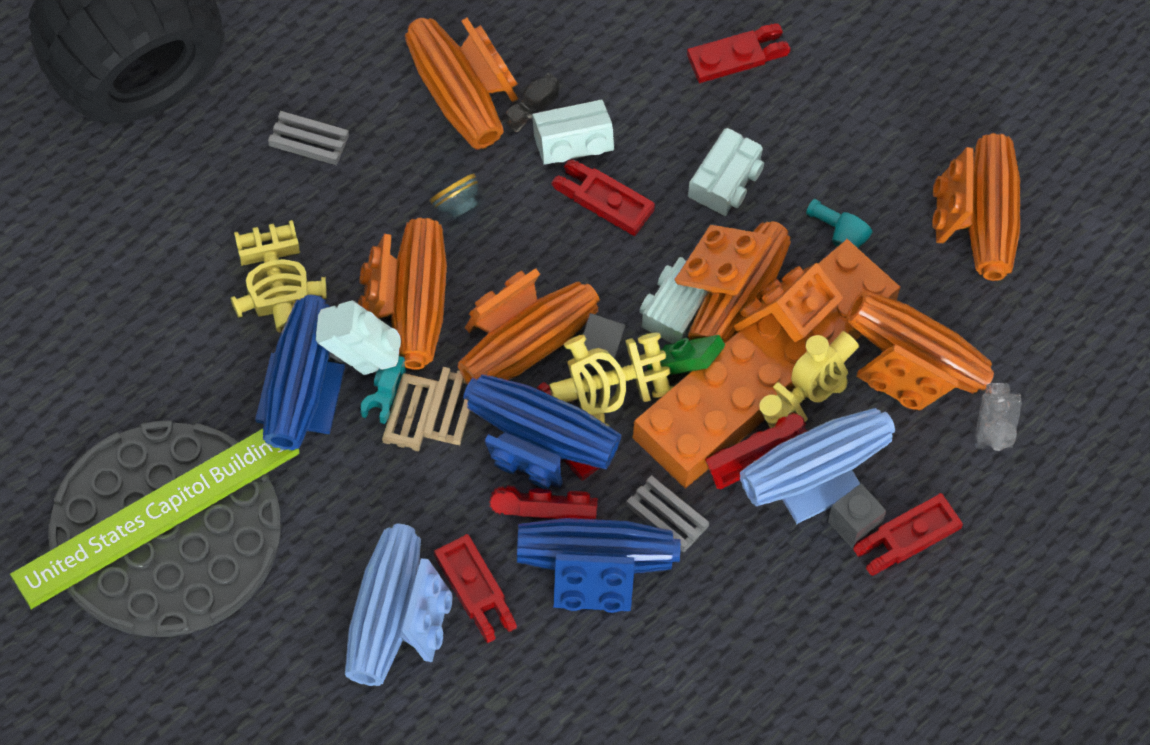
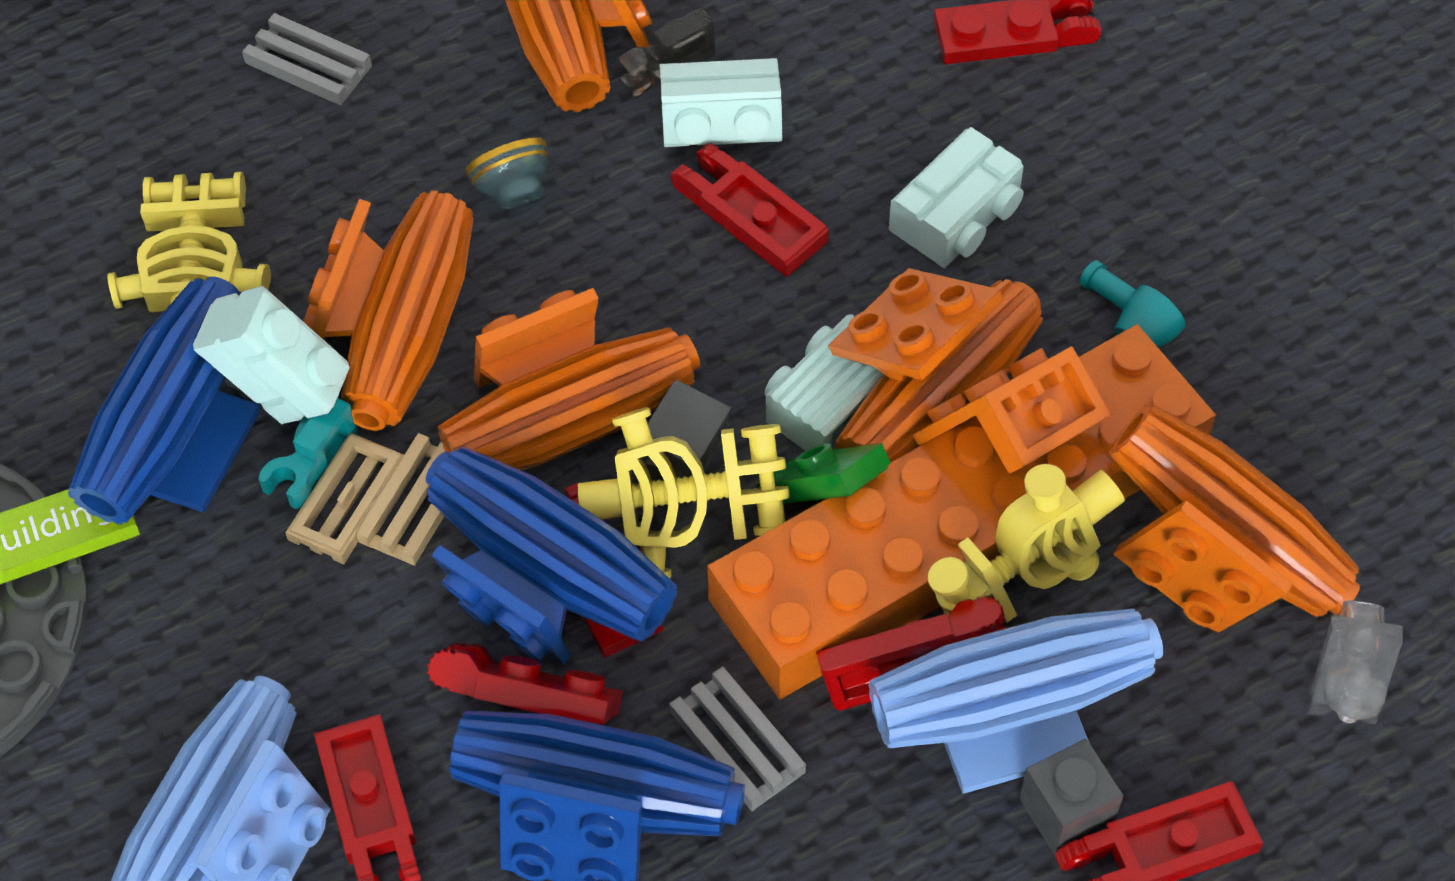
camera: 15 degrees right, 5 degrees down
(985, 198) = (1387, 301): orange plate -> none

